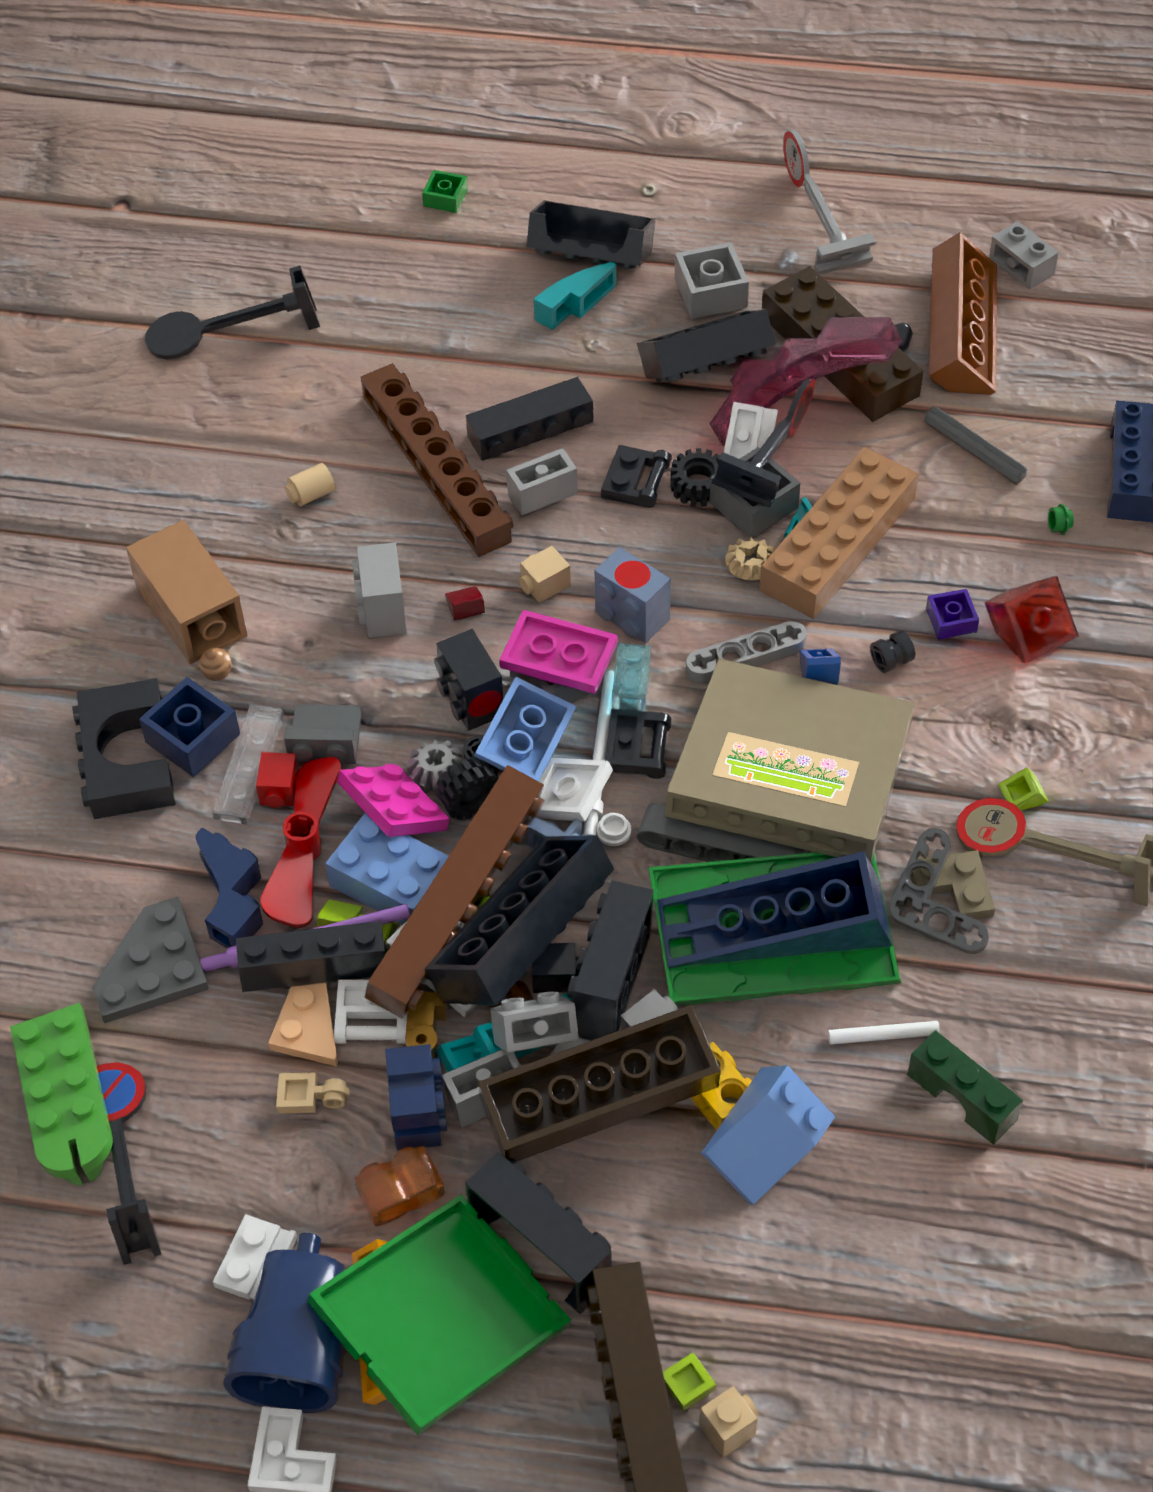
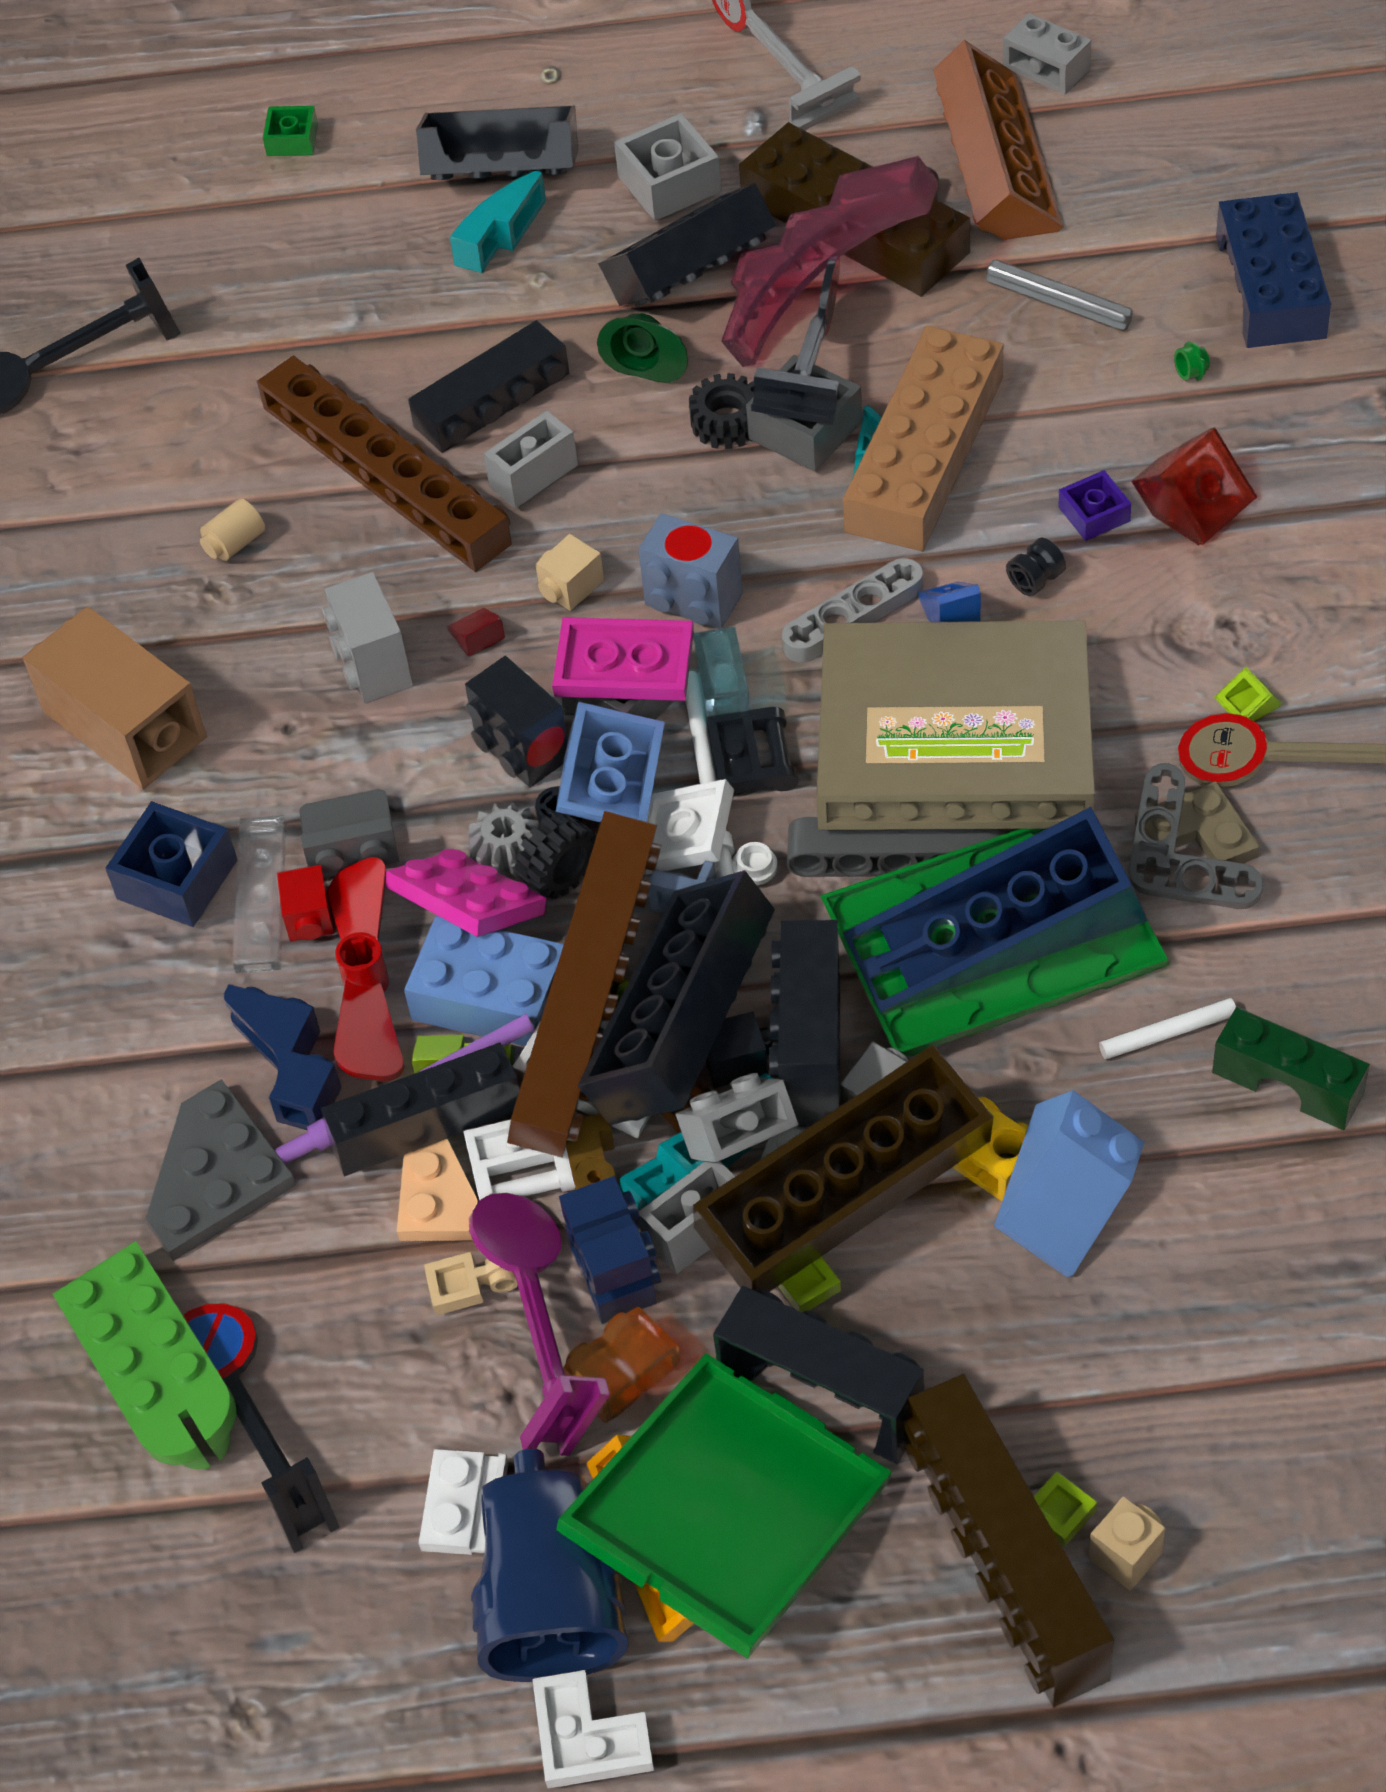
camera: 10 degrees left, 0 degrees up
(110, 786) = (97, 962): black arch -> none
(215, 664) = (178, 780): medium nougat plate -> none
(355, 1073) = (526, 1242): none -> magenta piece
(556, 1162) = (811, 1286): none -> lime plate
(626, 474) = (632, 427): black plate -> none
(650, 415) = (642, 348): none -> dark green piece
(737, 554) = (830, 506): tan gear -> none
(749, 428) = (774, 335): white plate -> none

